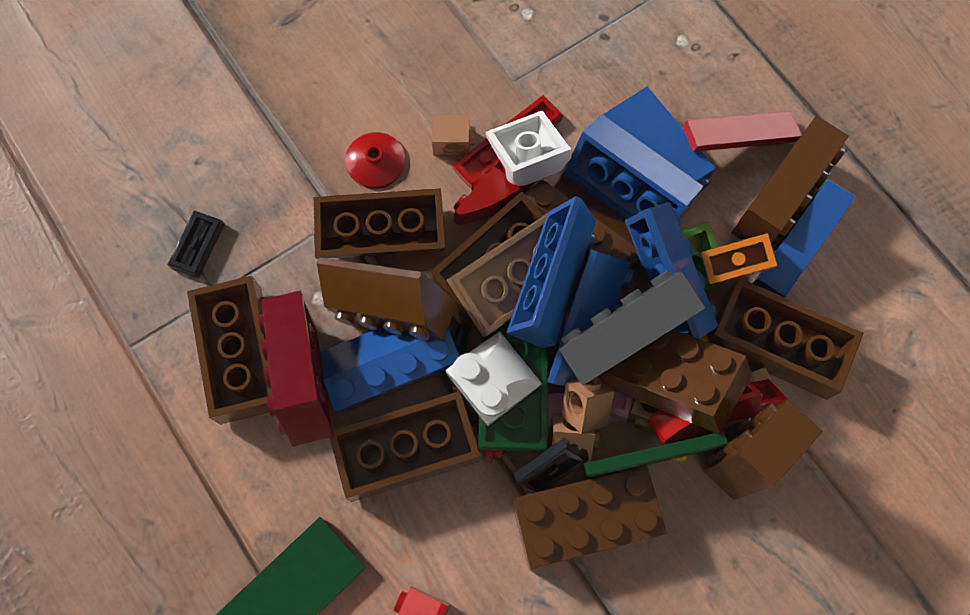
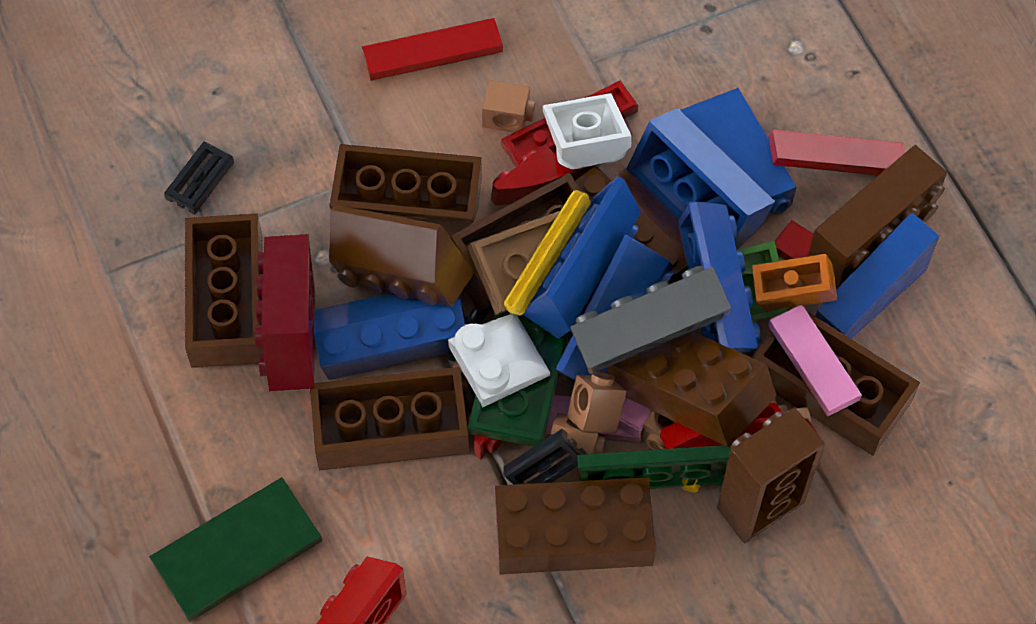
camera: 10 degrees right, 10 degrees down
(375, 171) = (415, 132): red dish -> none
(377, 92) = (432, 49): none -> red tile
(519, 274) = (547, 253): none -> yellow axle
(721, 216) = (793, 241): none -> red tile
(771, 330) = (814, 360): none -> bright pink tile

